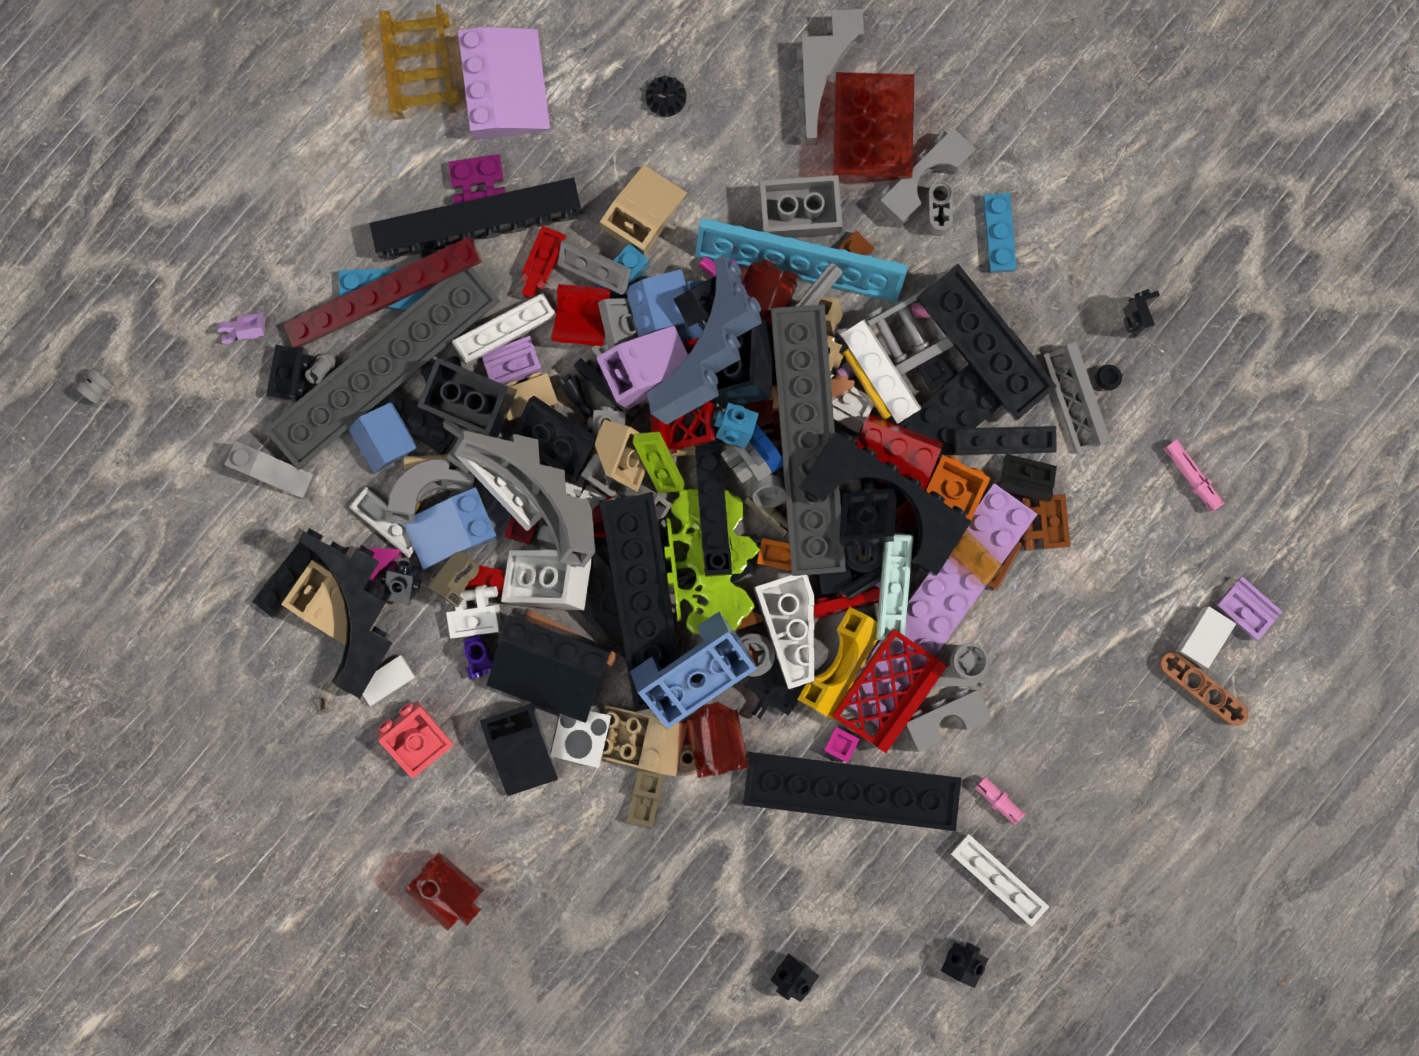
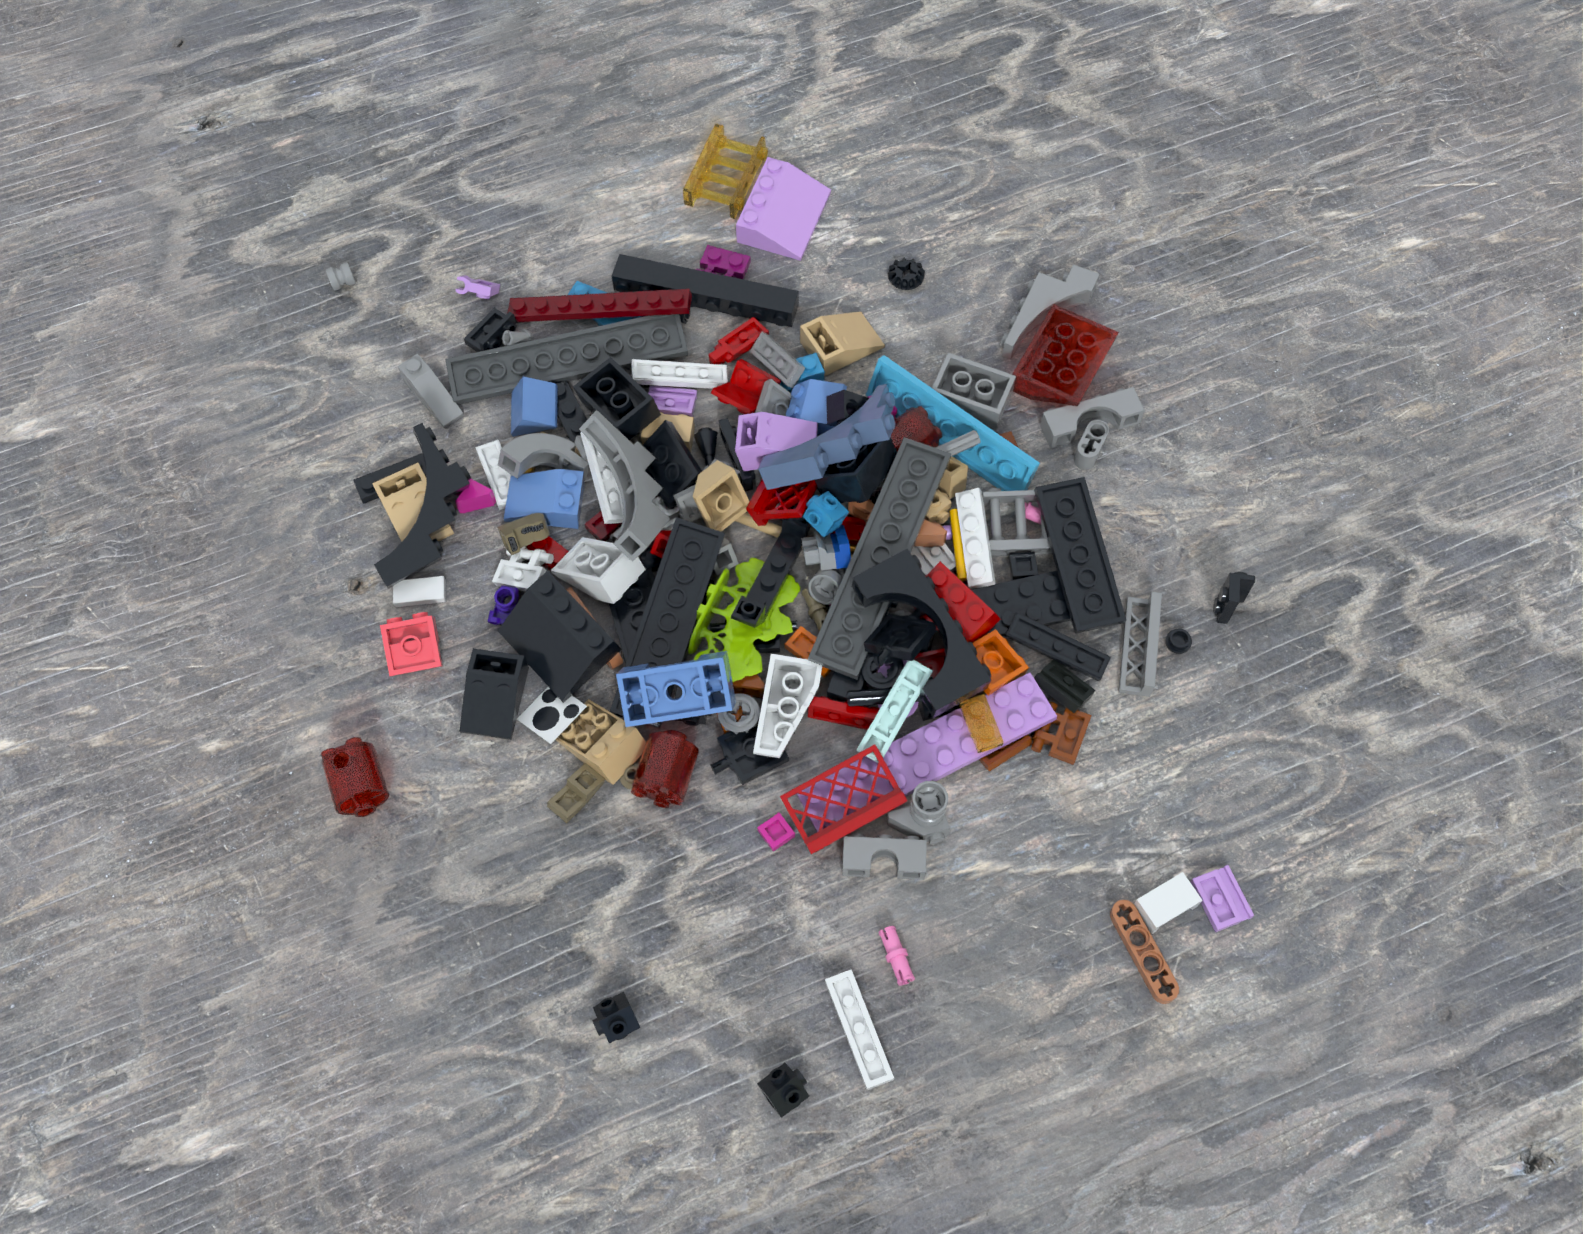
camera: 30 degrees right, 20 degrees down
(401, 582) = (479, 517): black brick -> none
(658, 462) = (744, 518): lime plate -> none
(852, 791) = (765, 878): black plate -> none
(857, 640) = (838, 745): yellow arch -> none
(999, 233) = (1135, 488): dark azure plate -> none
(1199, 483) = (1223, 768): bright pink pin -> none

